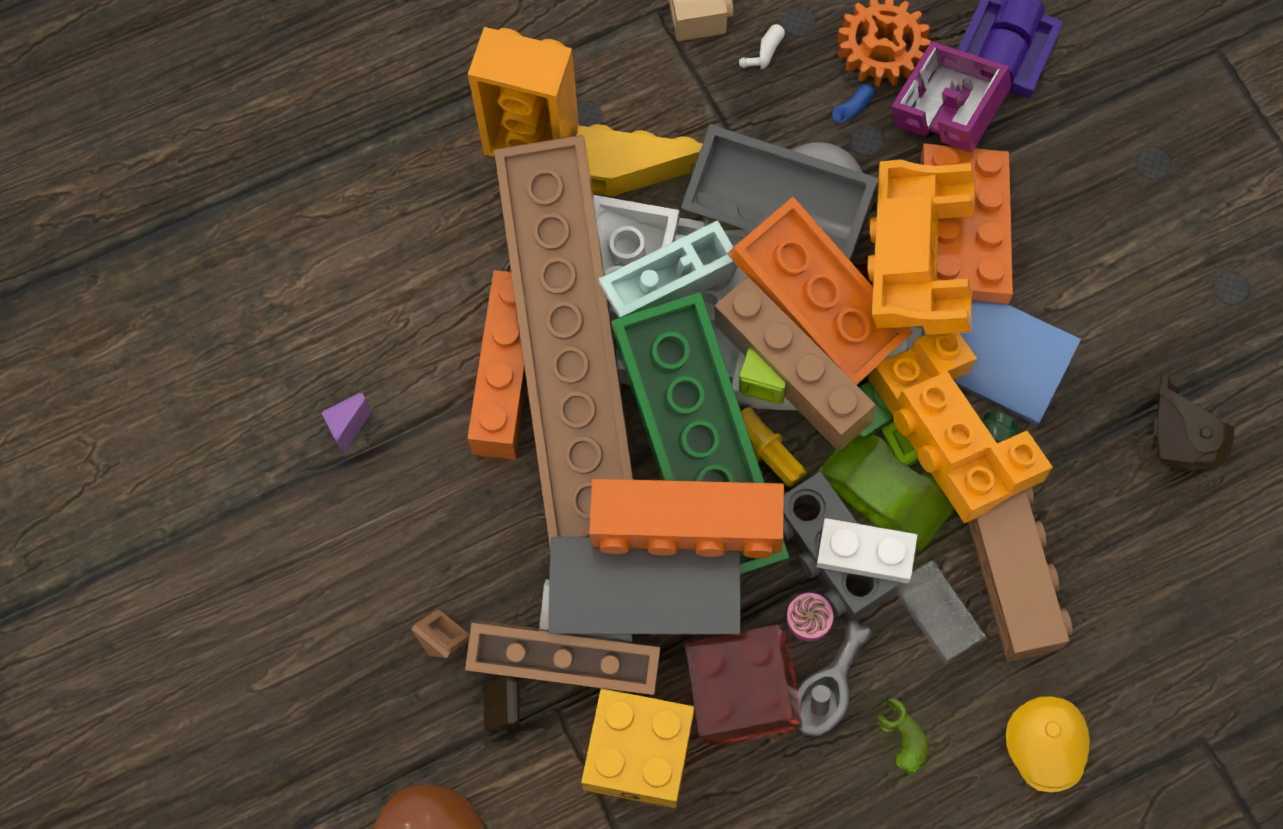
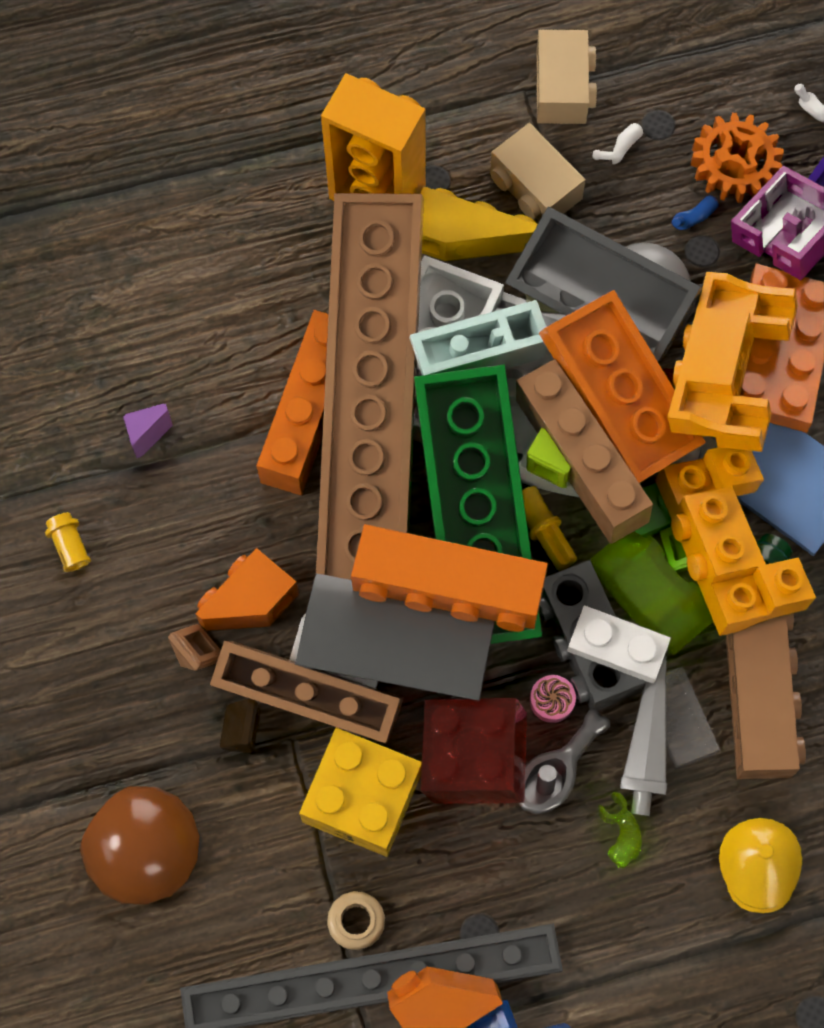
camera: 10 degrees right, 0 degrees up
(289, 551) = (67, 541): none -> yellow pin
(486, 573) = (249, 597): none -> orange slope
(687, 93) = (536, 174): none -> tan brick
(915, 658) = (647, 752): none -> light grey bar

